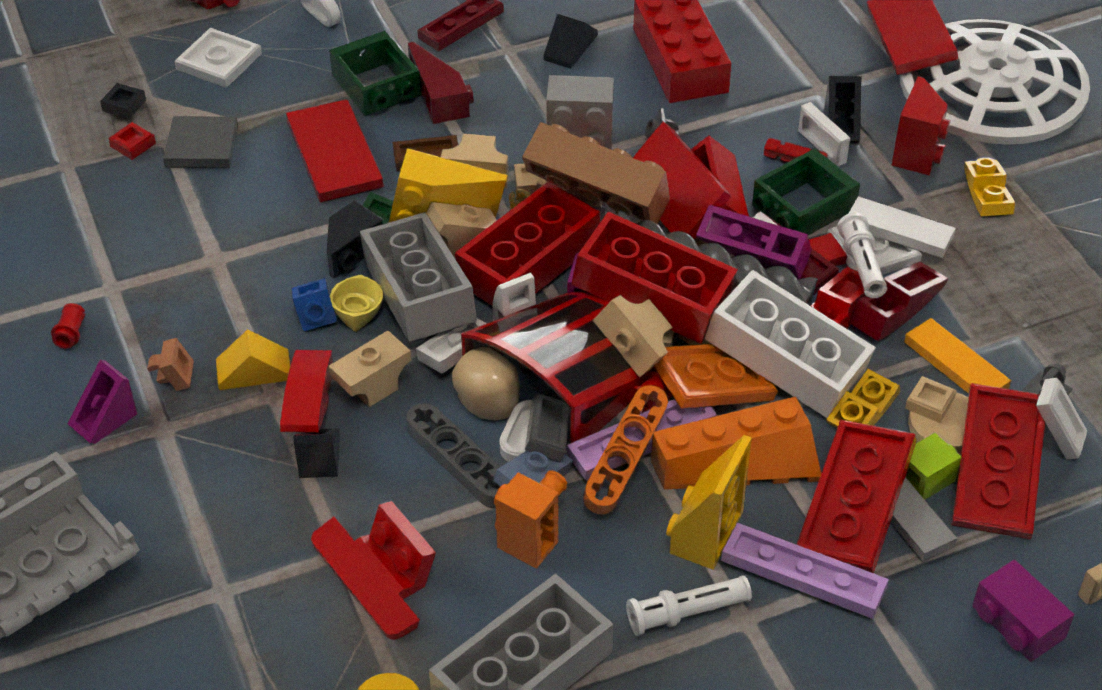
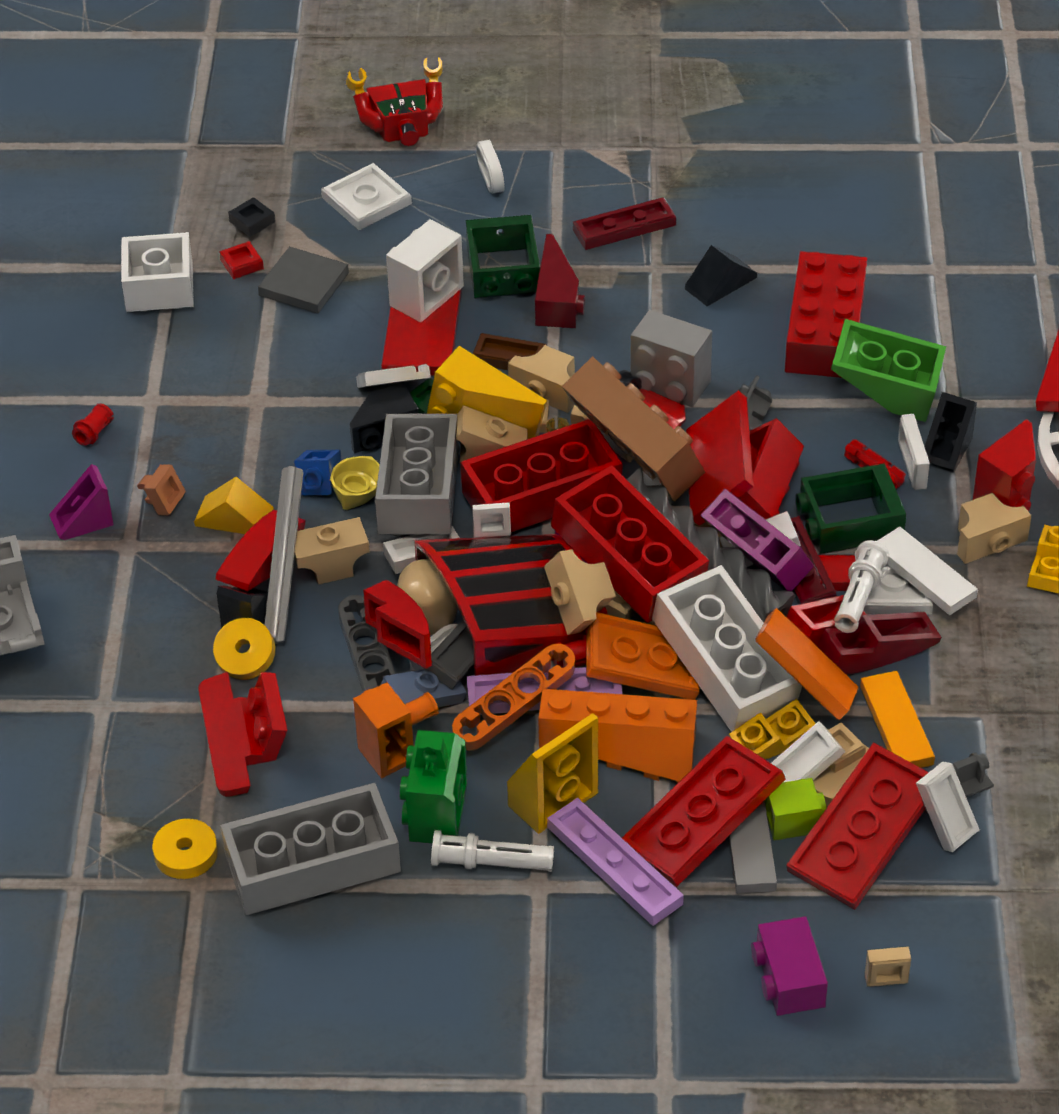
camera: 25 degrees right, 0 degrees up
(62, 170) = (157, 272): none -> white brick
(321, 99) = (425, 270): none -> white brick
(336, 388) = (283, 552): none -> light grey axle
(337, 199) = (392, 375): none -> white tile
(339, 471) = (232, 637): none -> yellow piece
(487, 414) = (398, 622): none -> red slope
(607, 557) = (434, 785): none -> green hinge
(771, 70) = (890, 367): none -> bright green slope
(870, 334) = (807, 664): none -> orange tile
(918, 410) = (809, 754): none -> white tile
(925, 176) = (990, 527): none -> tan brick

